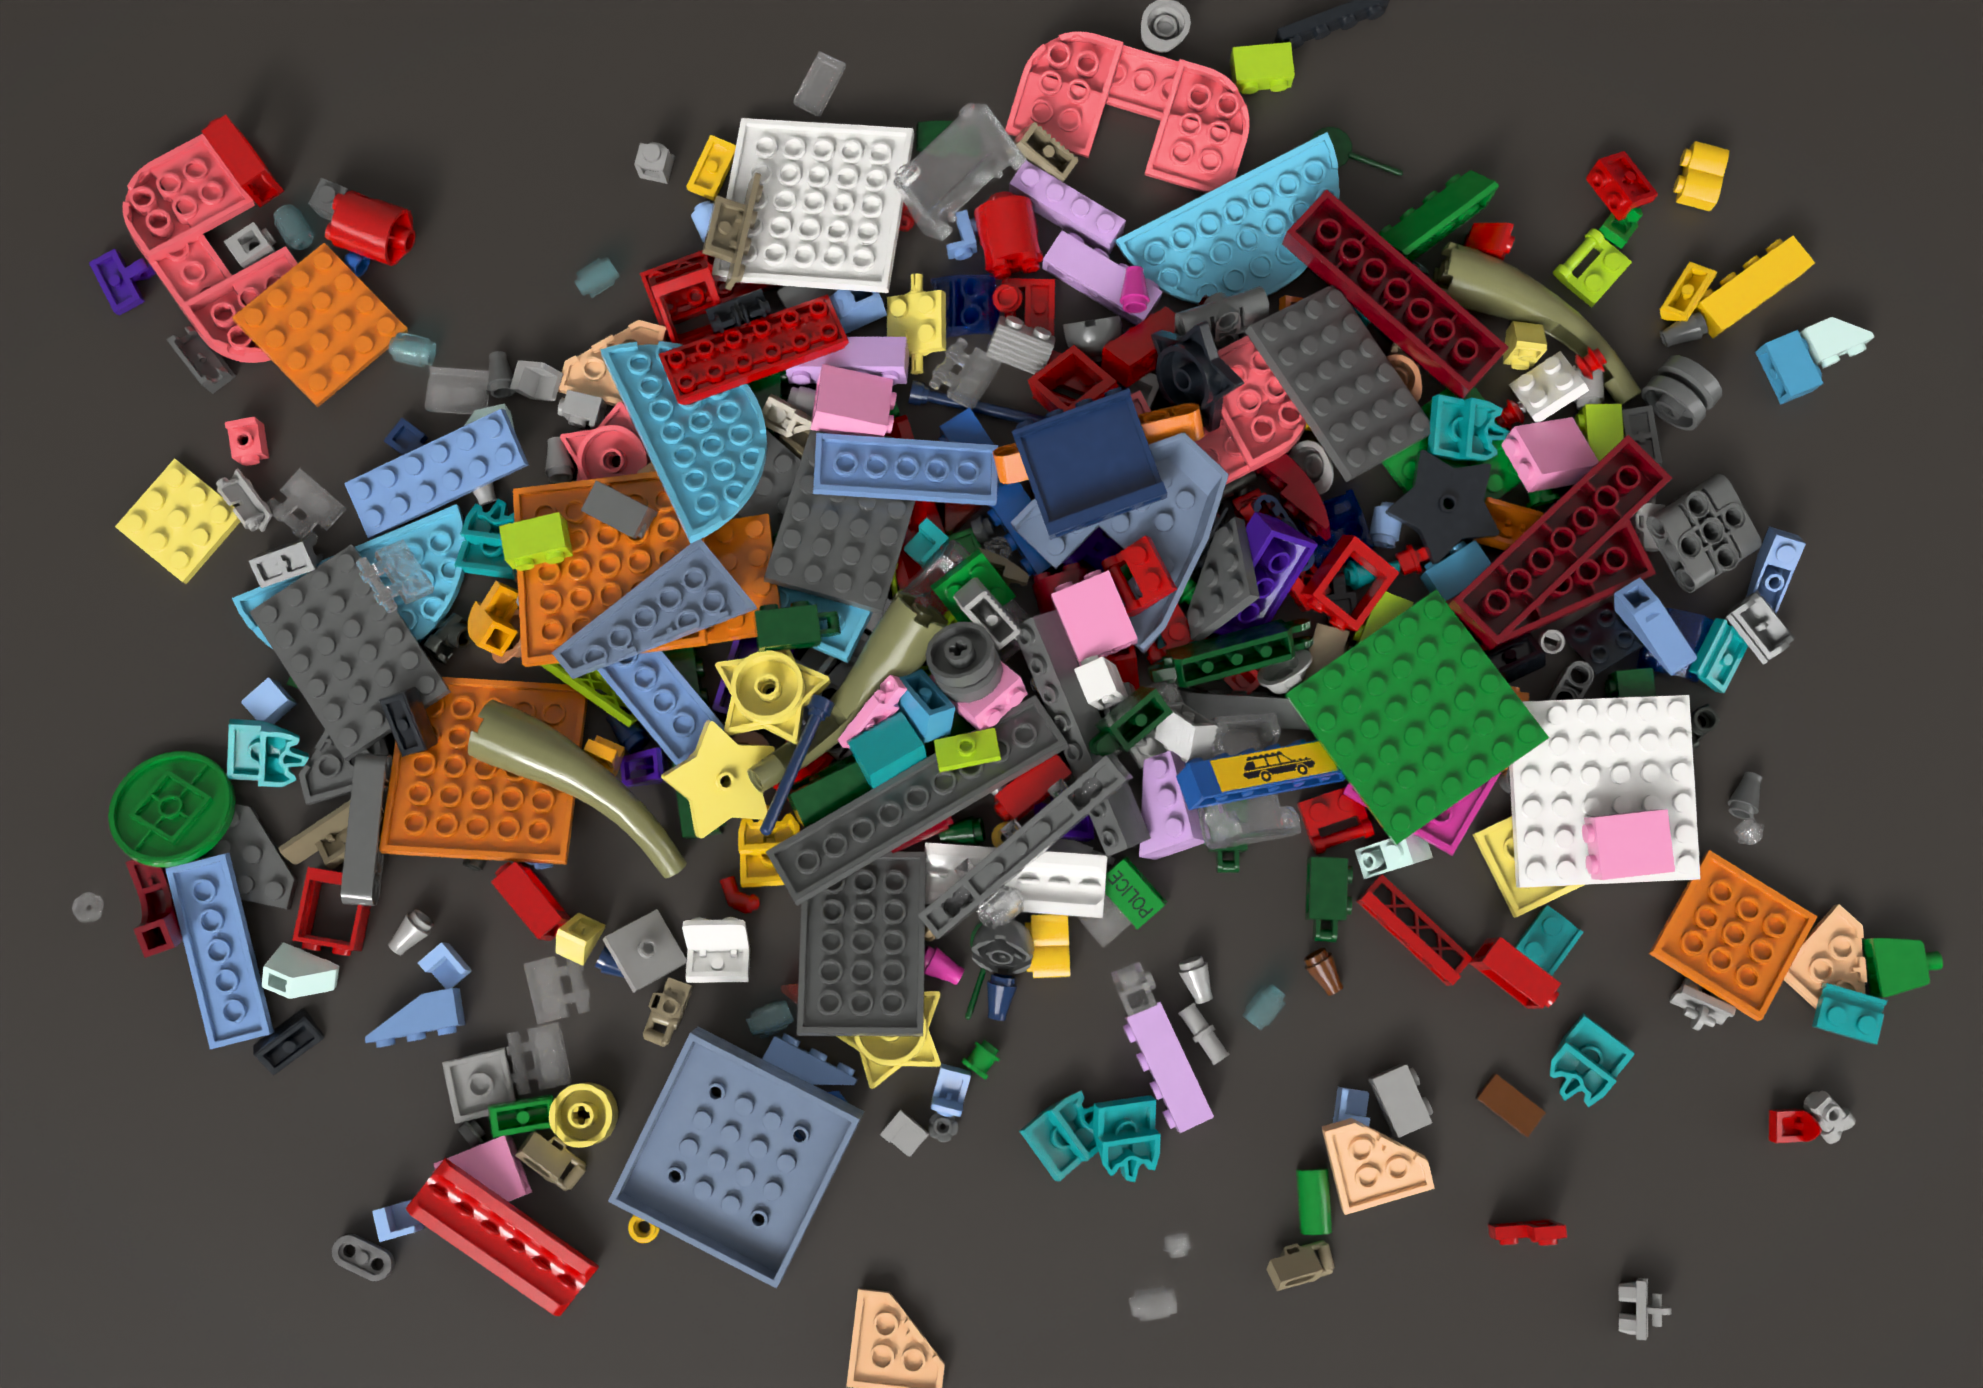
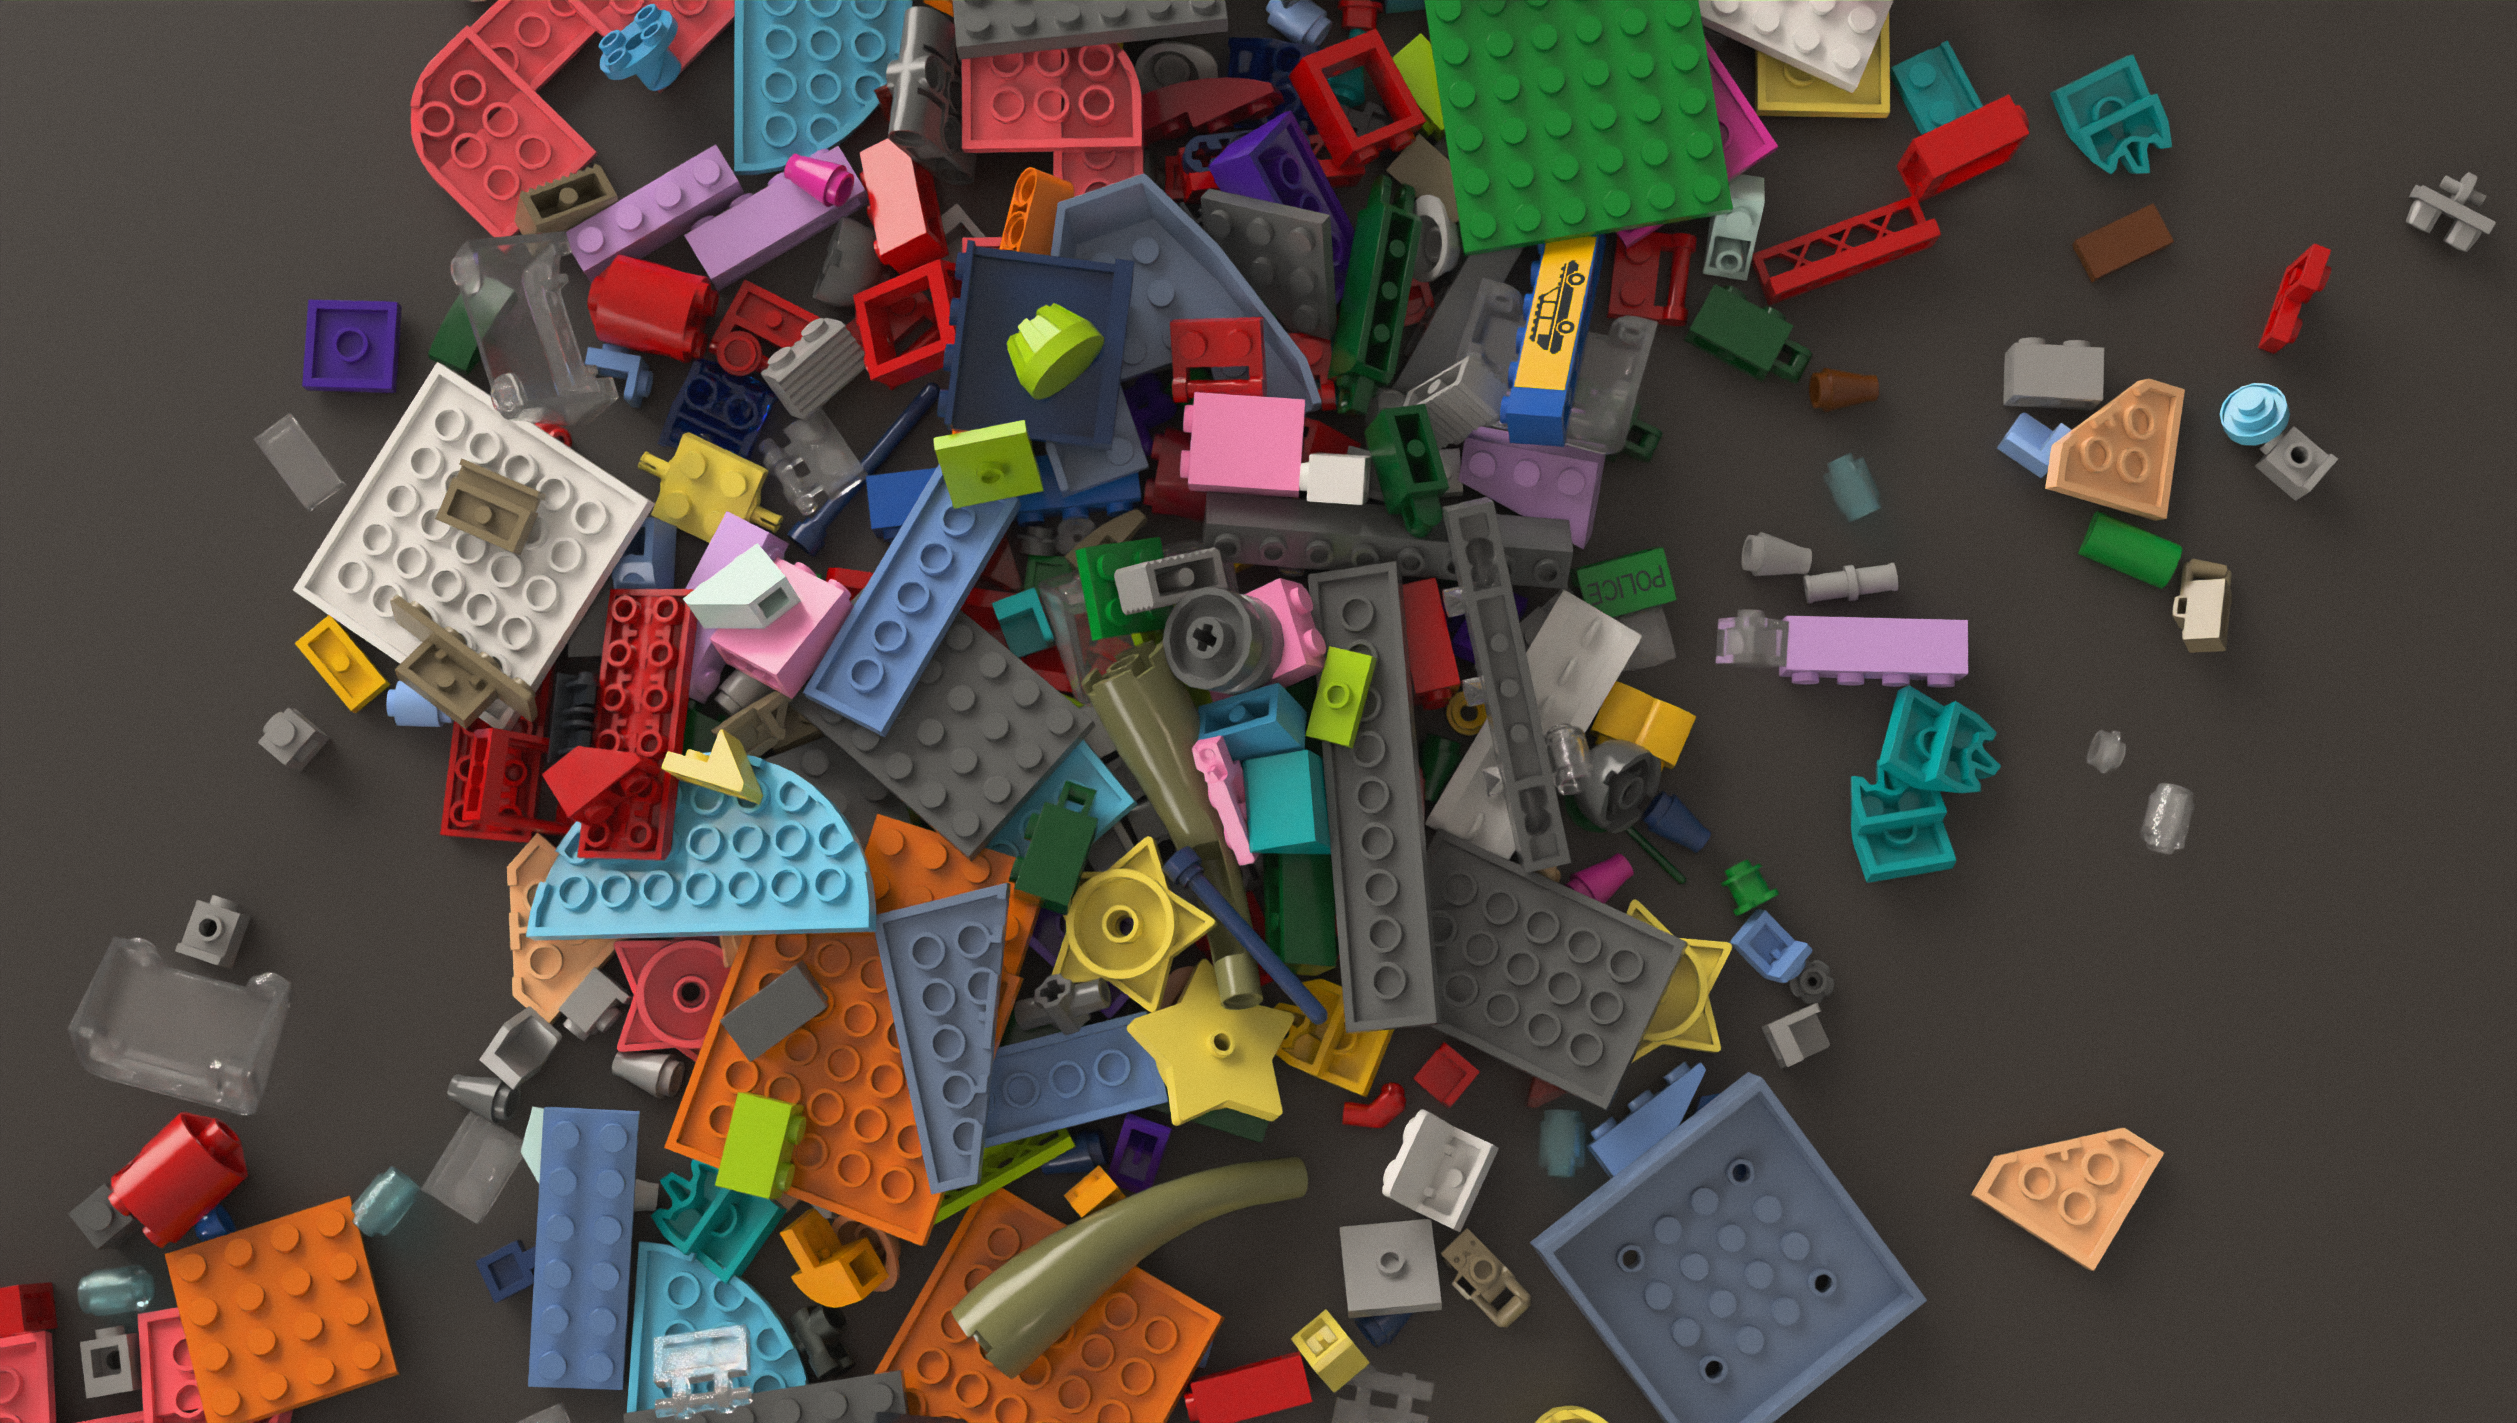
camera: 65 degrees left, 0 degrees up
(458, 185) = (180, 1029): none -> clear windscreen
(522, 185) = (225, 943): none -> light grey brick
(596, 277) = (415, 896): clear light blue brick -> none
(702, 339) = (597, 780): none -> red slope
(704, 676) = (1062, 1004): none -> dark grey axle
(747, 410) = (723, 771): none -> light yellow slope
(777, 929) = (1446, 1075): none -> red panel
(839, 200) = (490, 507): none -> dark tan plate
(857, 369) = (743, 594): none -> light aqua slope
(902, 77) = (352, 346): none -> dark purple plate
(1004, 471) = (988, 464): none -> lime plate
(1088, 472) = (1053, 350): none -> lime piece
(1160, 149) = (643, 49): none -> dark azure plate
(1193, 372) = (978, 152): black plate -> none
(1412, 1286) = (2291, 476): none -> light grey brick
(1440, 1240) = (2254, 414): none -> medium azure plate

